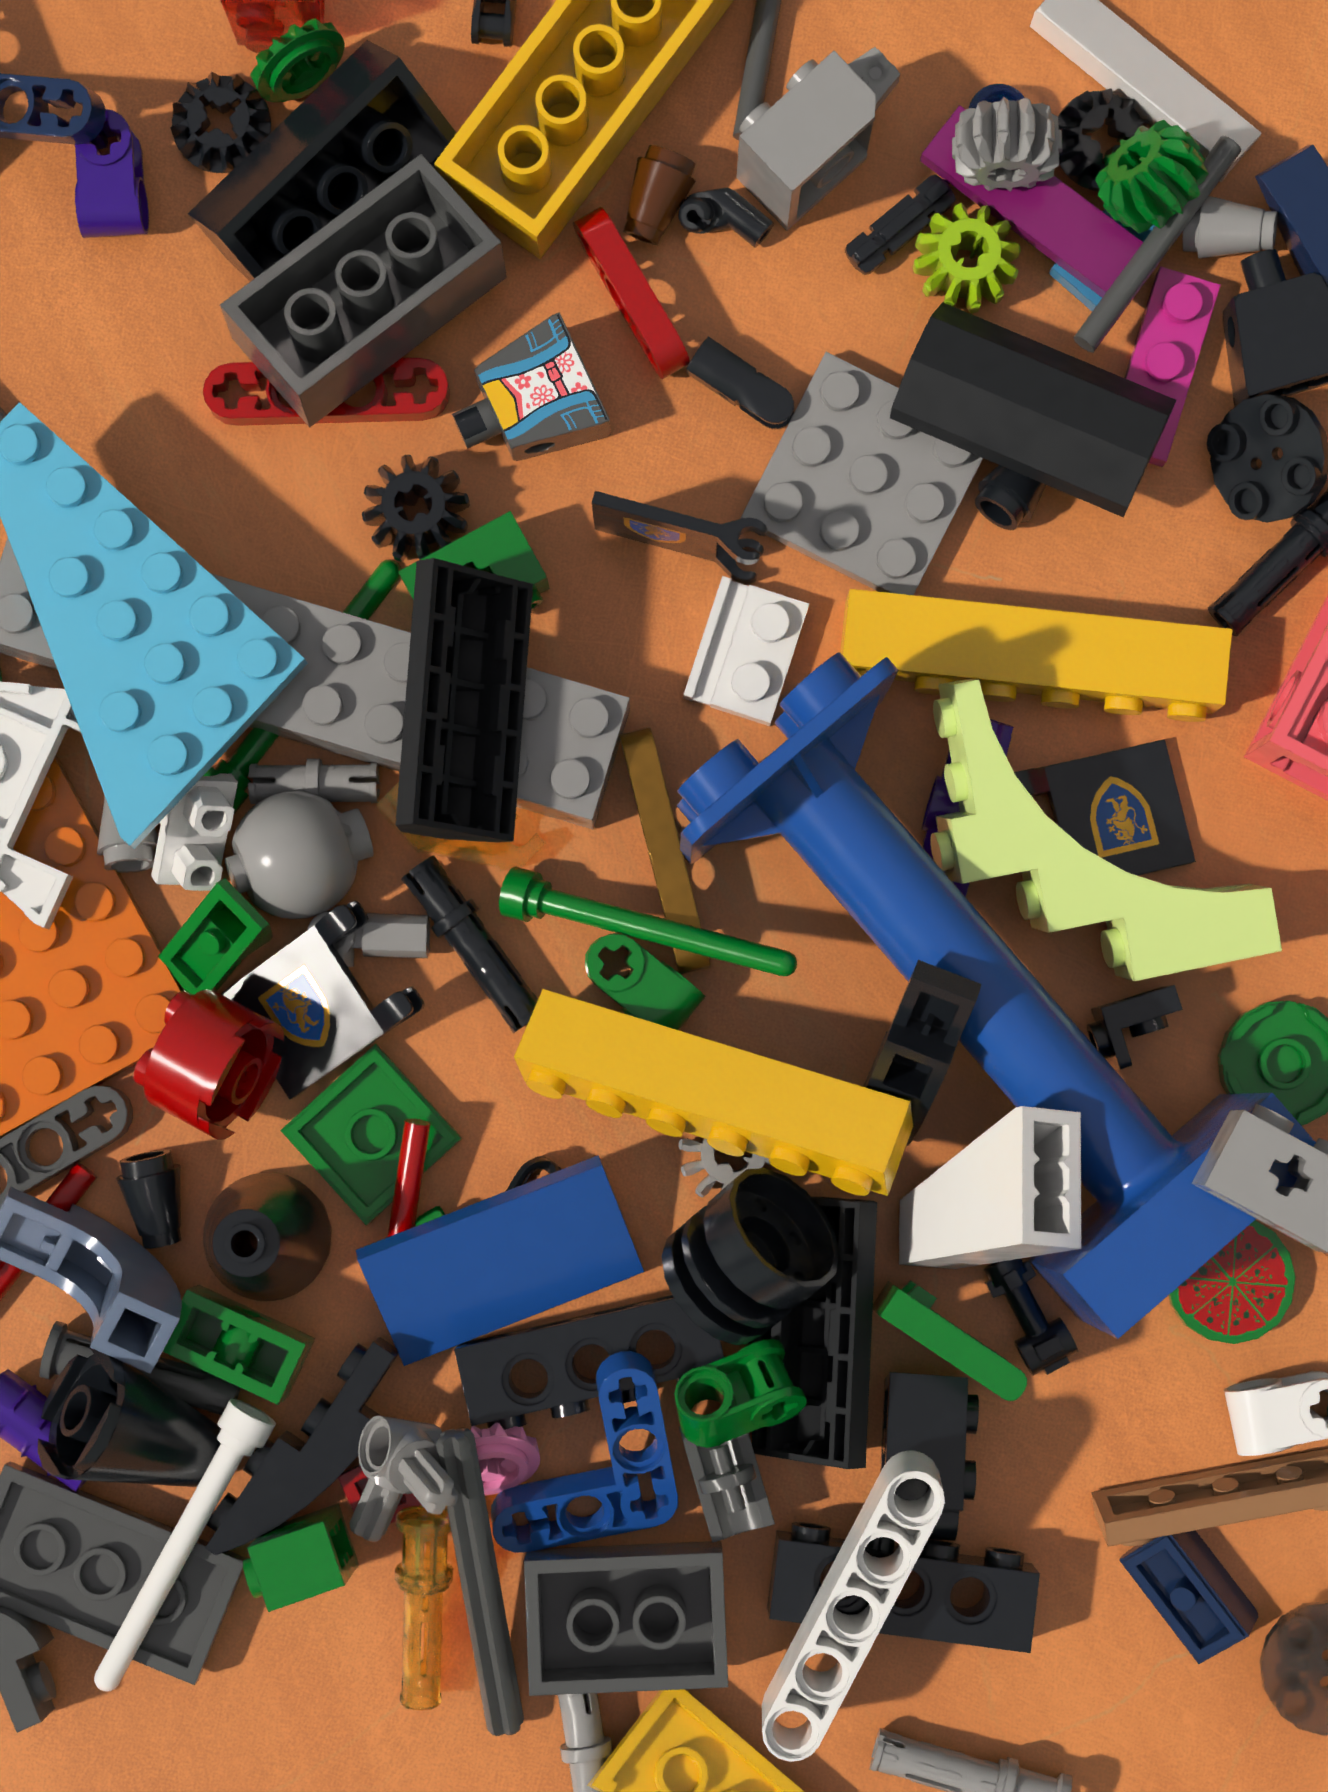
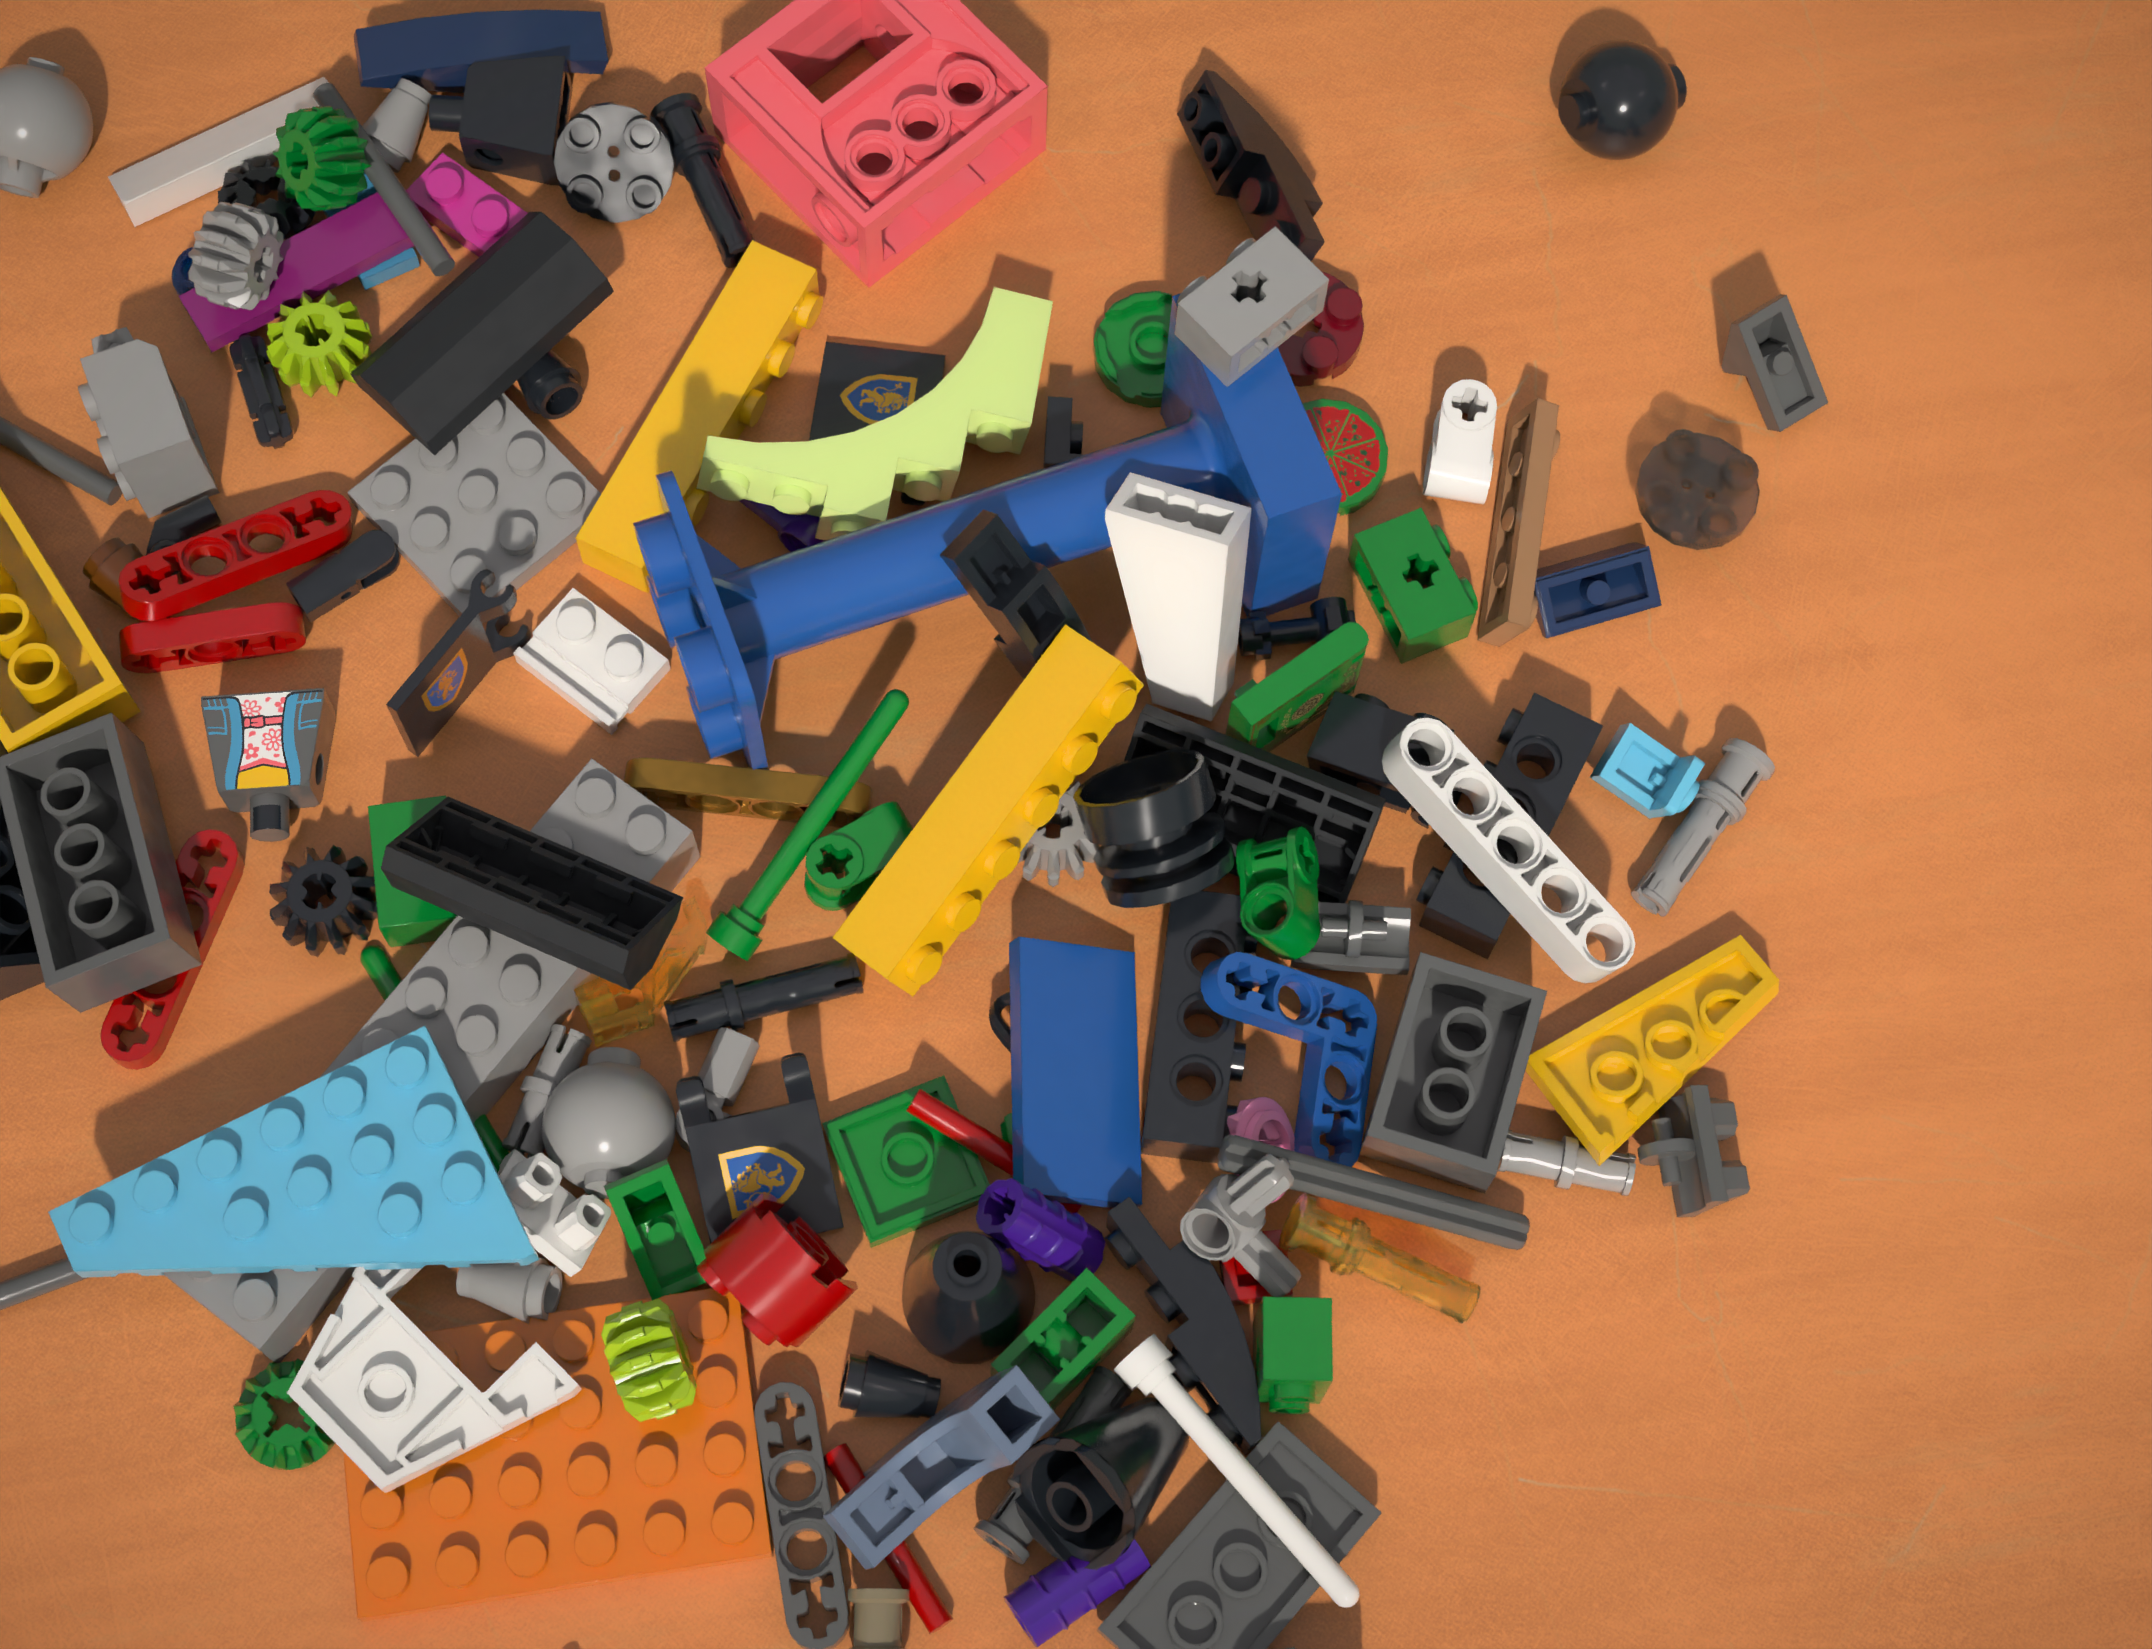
camera: 75 degrees left, 15 degrees down
(81, 982) = (649, 1360): none -> lime gear
(332, 1286) = (1039, 1229): none -> dark purple axle
(724, 270) = (232, 546): none -> red beam
(1005, 1709) = (1647, 773): none -> medium azure bracket
(1126, 1377) = (1413, 616): none -> green brick

